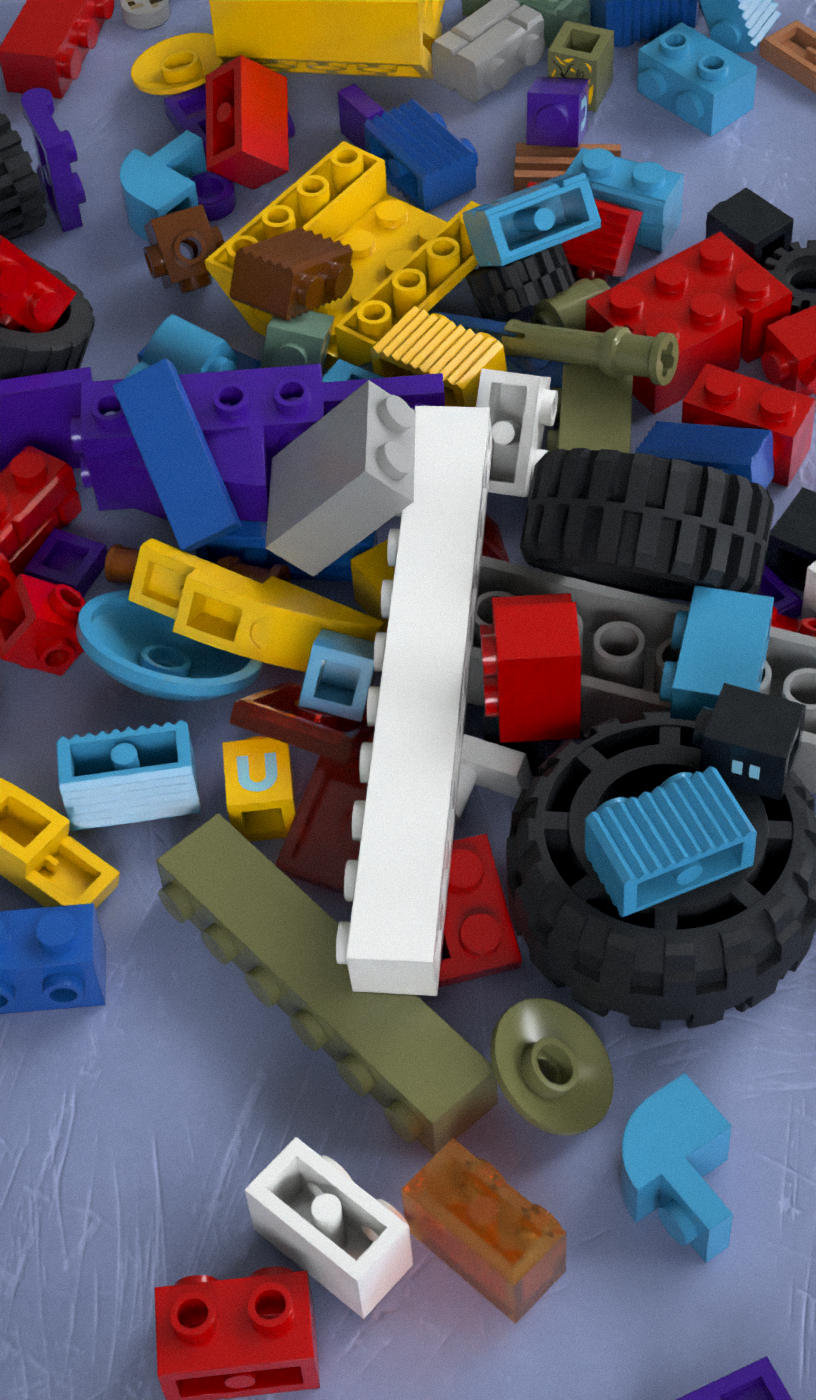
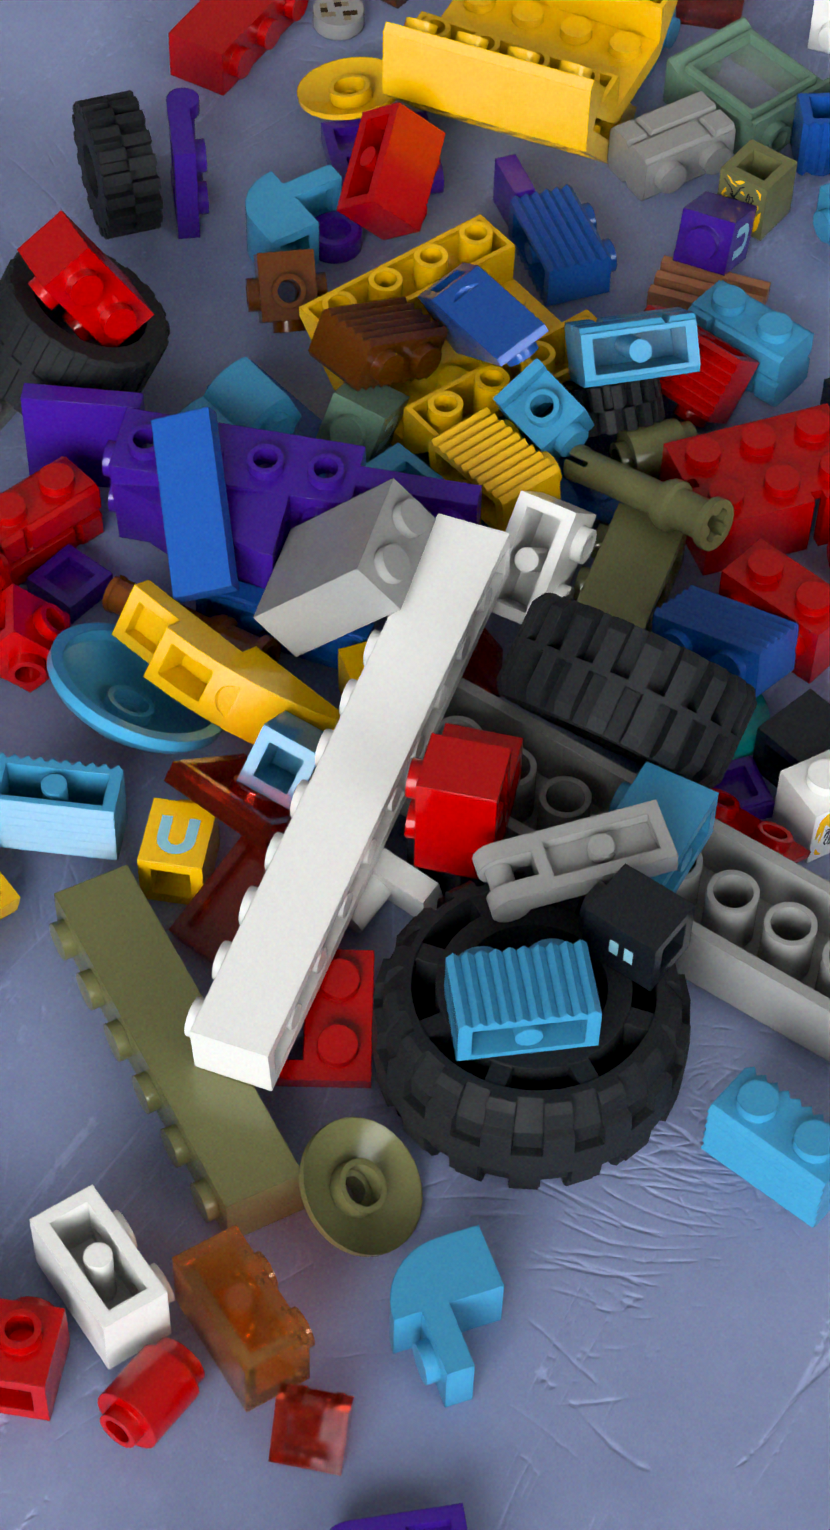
camera: 10 degrees right, 0 degrees up
(385, 226) = (482, 317): none -> blue slope
(416, 1332) = (150, 1394): none -> red brick
(454, 283) = (530, 397): none -> dark azure brick
(590, 1322) = (311, 1428): none -> clear red tile
(666, 692) = (573, 858): none -> light grey plate

